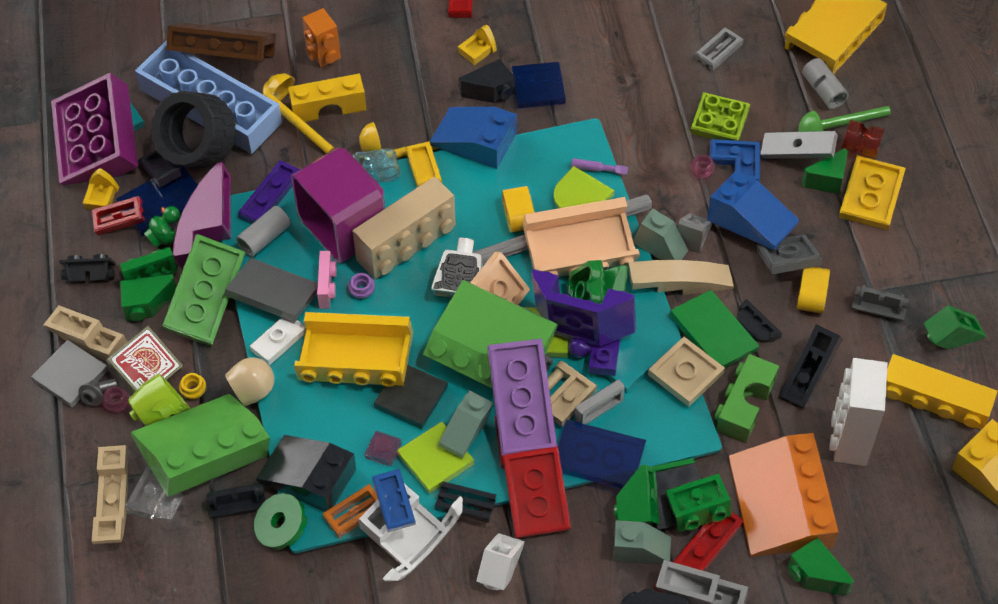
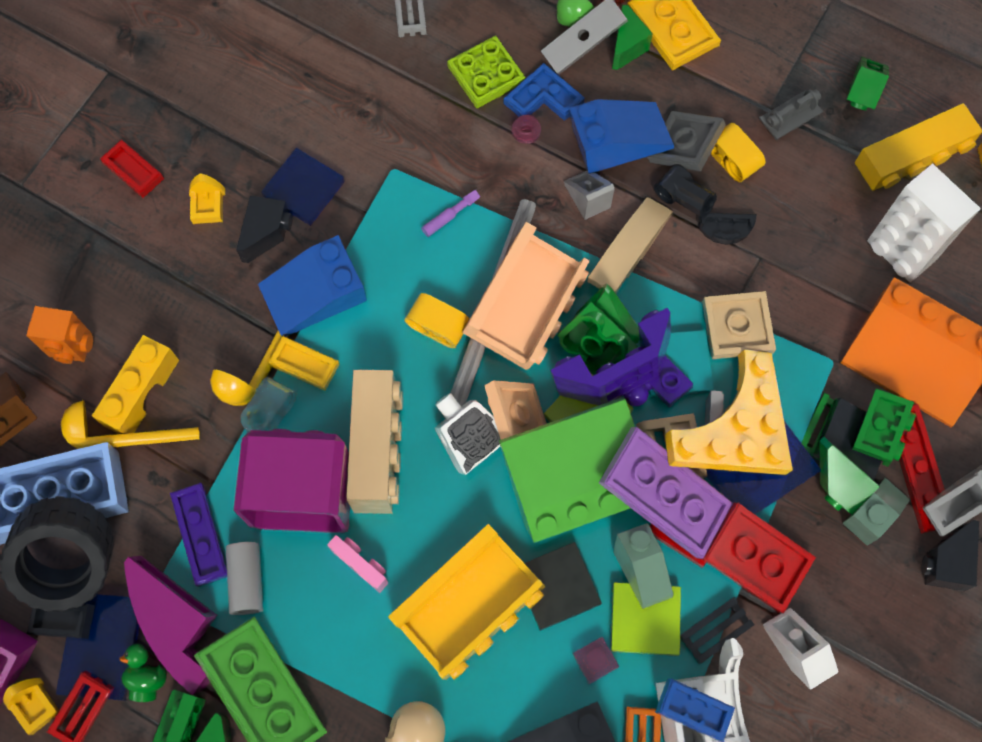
camera: 50 degrees left, 15 degrees up
(272, 289) = (322, 625): dark grey tile -> none
(277, 340) = (383, 663): white plate -> none
(358, 280) = (388, 525): medium lavender plate -> none
(579, 189) = (467, 254): lime tile -> none
(607, 418) = (749, 432): none -> yellow plate
(660, 237) = (578, 228): sand green slope -> none
(714, 329) = (707, 265): green tile -> none
(737, 415) = (808, 320): bright green arch -> none
(751, 278) = (680, 187): none -> black piece
(811, 366) = (812, 218): black slope -> none

